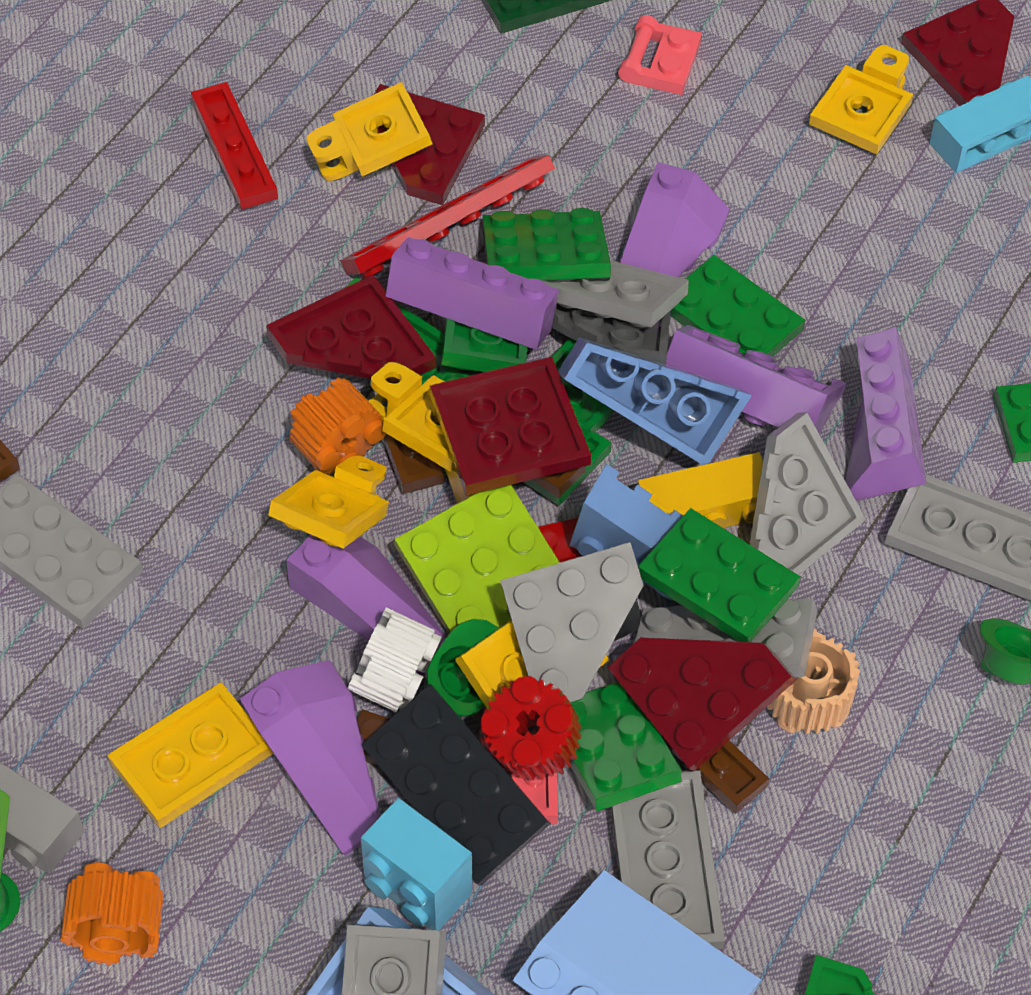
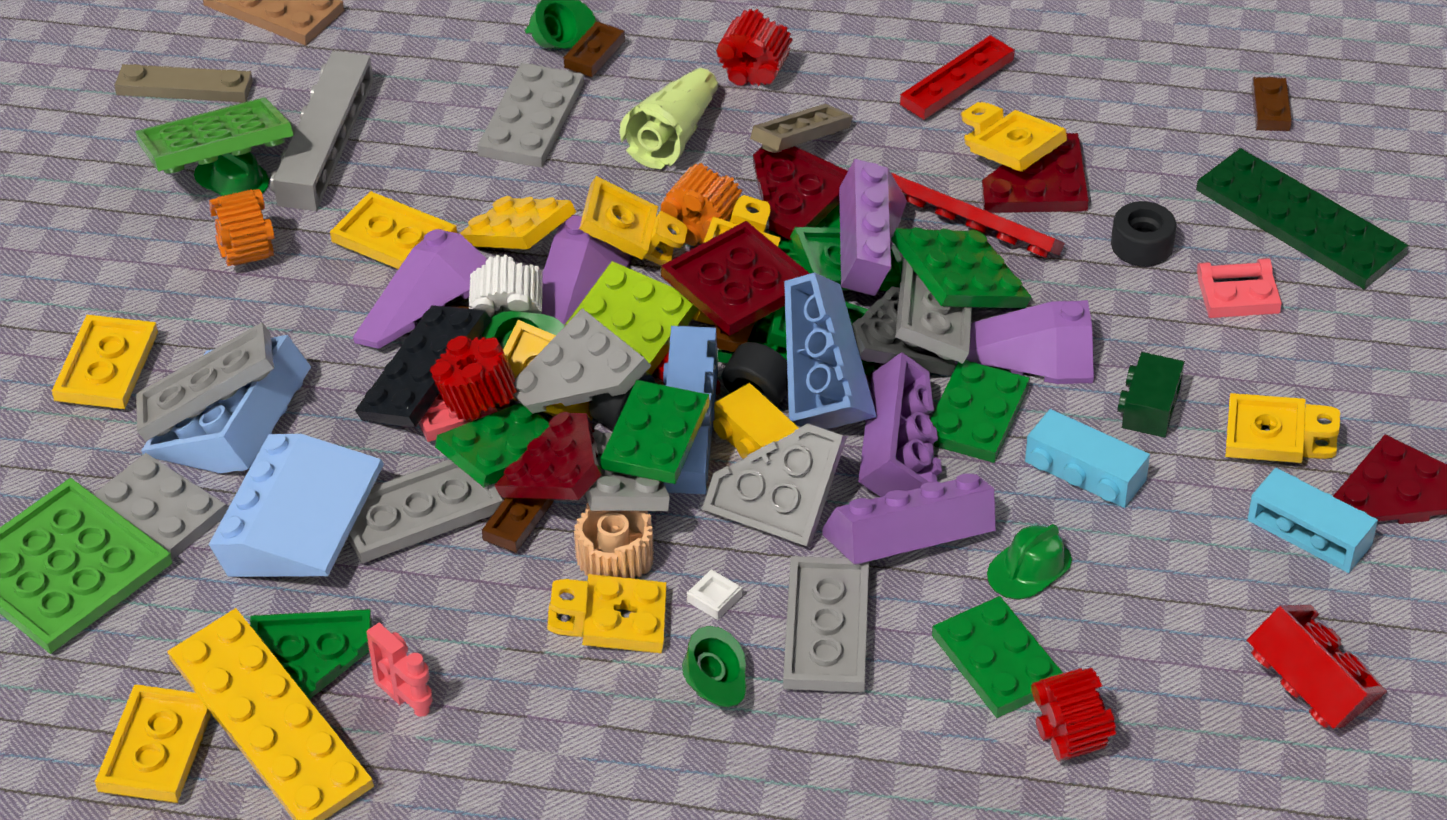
camera: 70 degrees right, 10 degrees down
(98, 294) = (753, 49): none -> red brick
(164, 411) = (667, 119): none -> yellowish green cone
(263, 296) = (800, 127): none -> dark tan plate
(263, 616) = (517, 222): none -> yellow plate
(416, 866) = (341, 361): medium azure brick -> none
(553, 75) = (1143, 233): none -> black tyre
(627, 456) = (761, 368): none -> black tyre
(783, 170) = (1151, 394): none -> dark green brick
(846, 252) = (1087, 458): none -> medium azure brick
(893, 737) = (596, 613): none -> yellow plate
(897, 623) = (714, 594): none -> white tile
(933, 945) = (397, 674): none -> coral plate
(955, 350) = (1029, 563): none -> green piece

